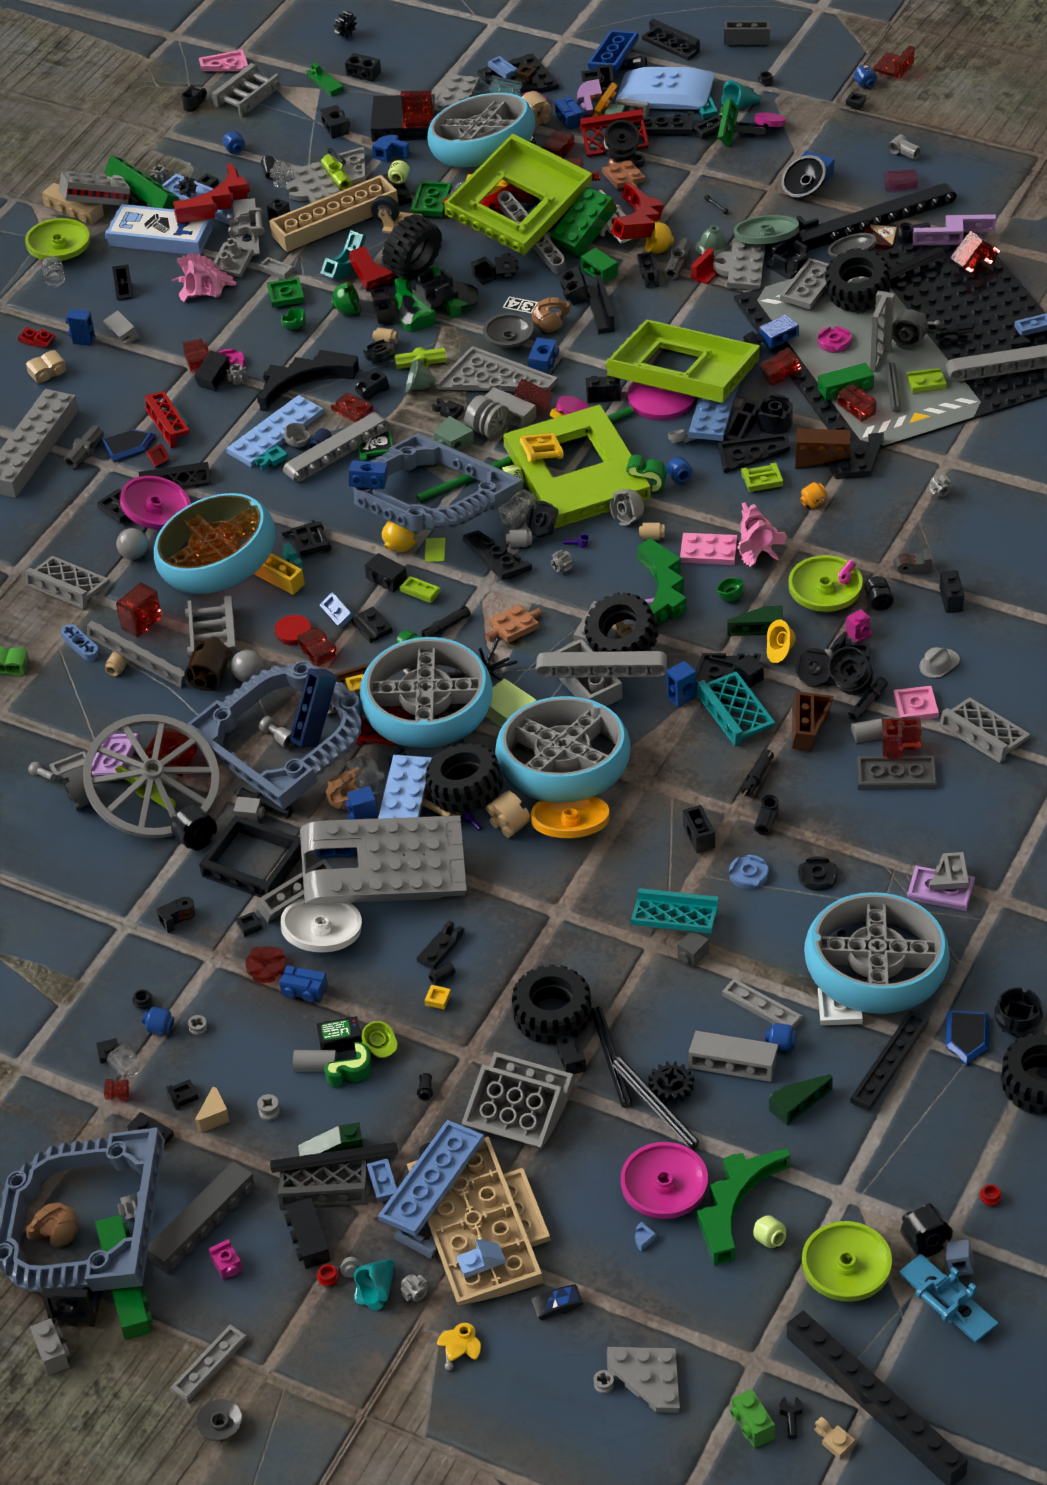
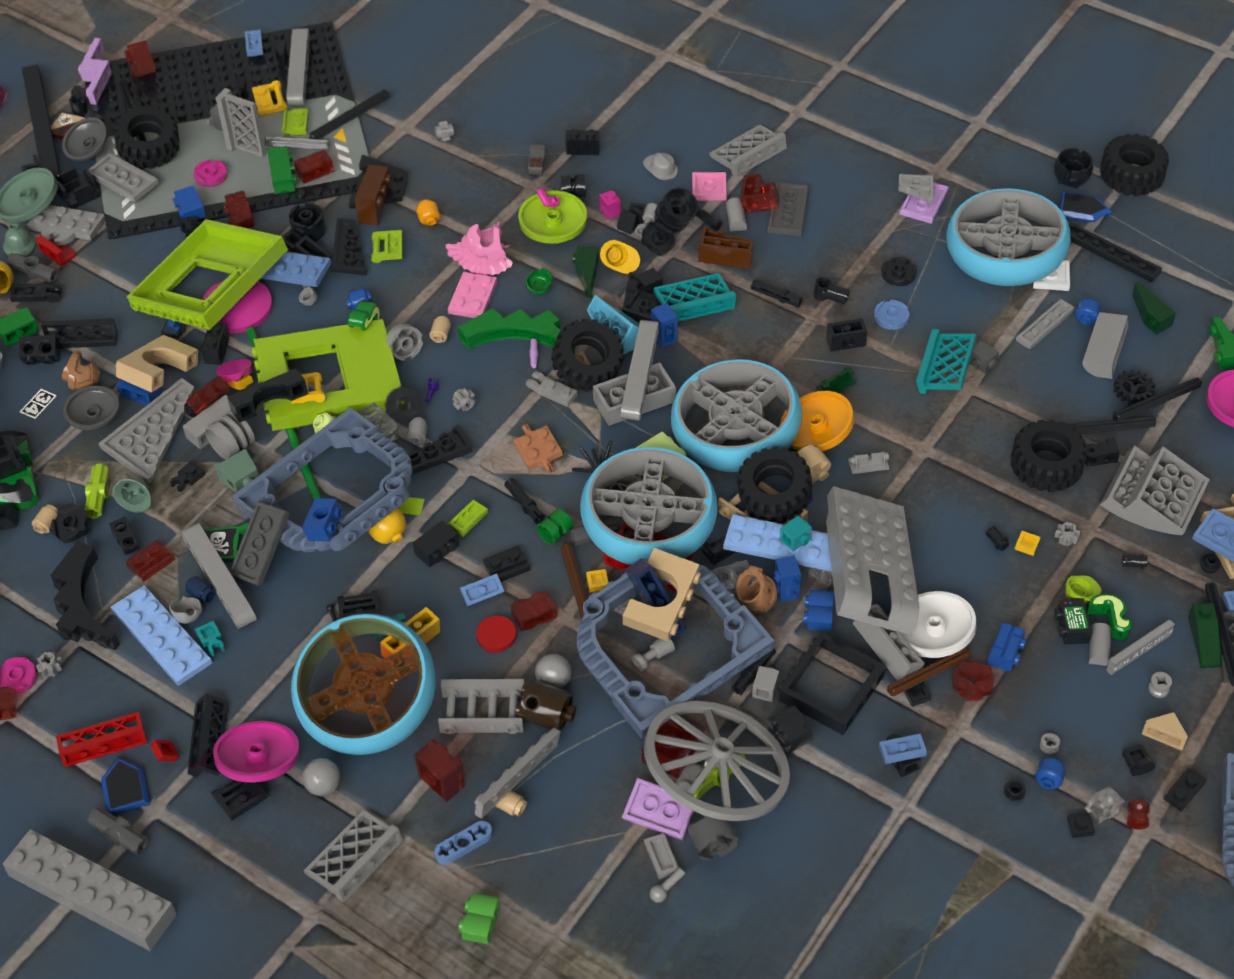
camera: 85 degrees left, 5 degrees up
(170, 902) = (902, 748): none -> medium blue plate
(212, 370) = (36, 685): black brick -> none
(268, 925) = (928, 672): none -> reddish brown axle
(312, 1090) = (1140, 647): none -> light grey tile
(328, 715) = (663, 620): none -> tan arch
(369, 453) = (259, 543): none -> dark grey tile
(400, 796) = (796, 533): none -> teal brick
(440, 946) = (960, 538): black hinge -> none
(452, 1027) = (1067, 534): none -> light grey gear
(503, 406) = (284, 386): none -> black arch
(528, 865) = (867, 463): none -> light grey hinge
(551, 337) = (138, 366): none -> tan arch
(634, 832) = (839, 382): none -> dark green hinge
(688, 651) = (622, 324): none -> medium azure wedge
(947, 415) = (349, 115): none -> black axle
(954, 349) = (264, 101): none -> yellow plate

